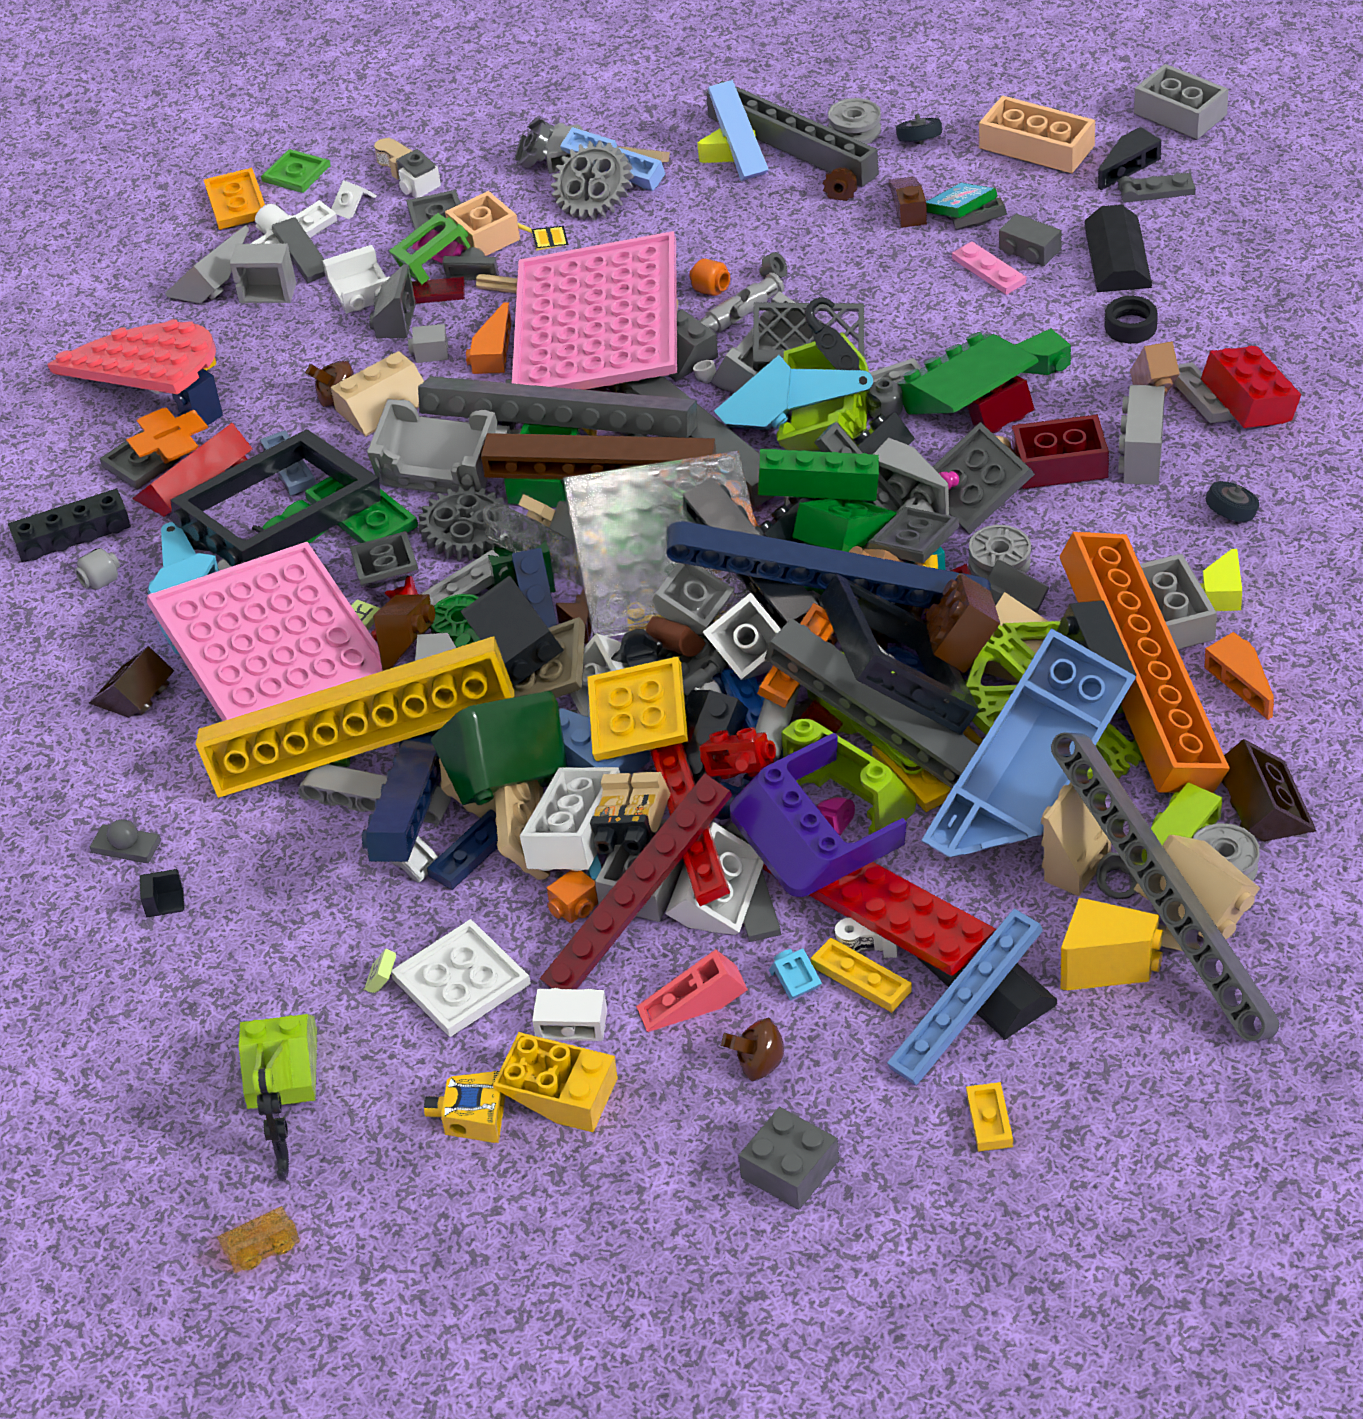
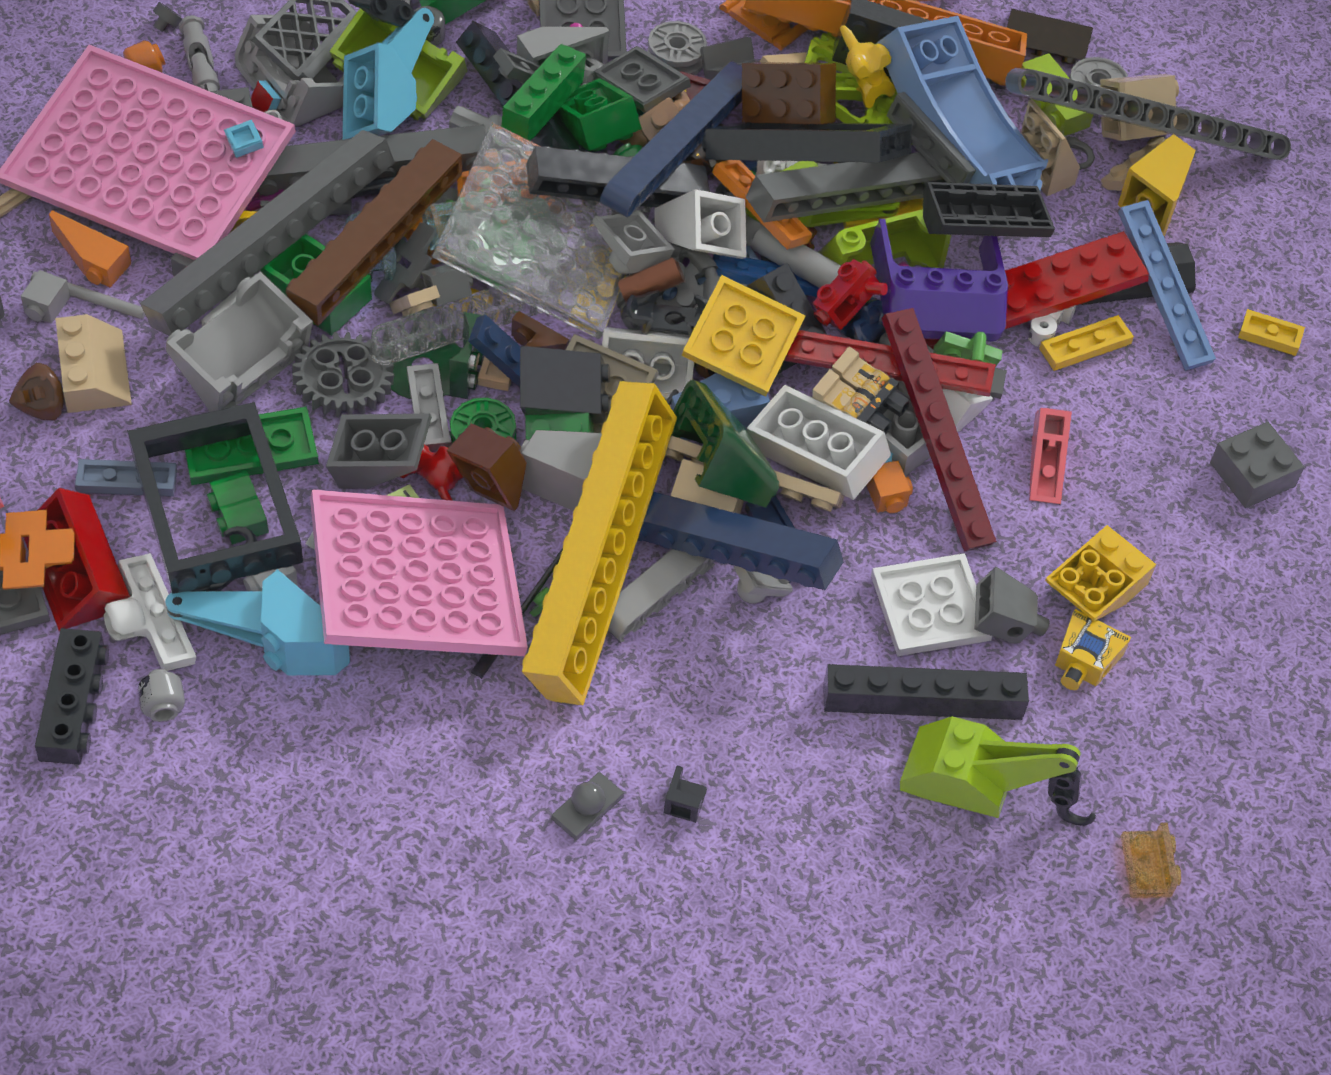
camera: 75 degrees left, 10 degrees up
(134, 684) = (367, 722): dark brown slope -> none
(147, 551) = (147, 614): none -> white plate
(353, 1006) = (925, 692): none -> black brick
(380, 971) = (892, 654): yellowish green tile -> none
(454, 354) = (104, 300): none -> light grey bar
(475, 1025) = (1007, 608): none -> dark grey torso
(570, 1014) = (1023, 543): white brick -> none
(637, 346) = (243, 138): none -> medium azure tile
(726, 348) = (264, 97): none -> red tile
(754, 869) = (971, 349): none -> bright green plate
(758, 1048) = (1133, 436): reddish brown piece -> none
(795, 973) = (1060, 379): medium azure bracket -> none
(899, 799) = (985, 210): none -> black piece
(977, 737) = (931, 141): none -> dark grey tile
(1020, 645) = (866, 64): none -> yellow animal

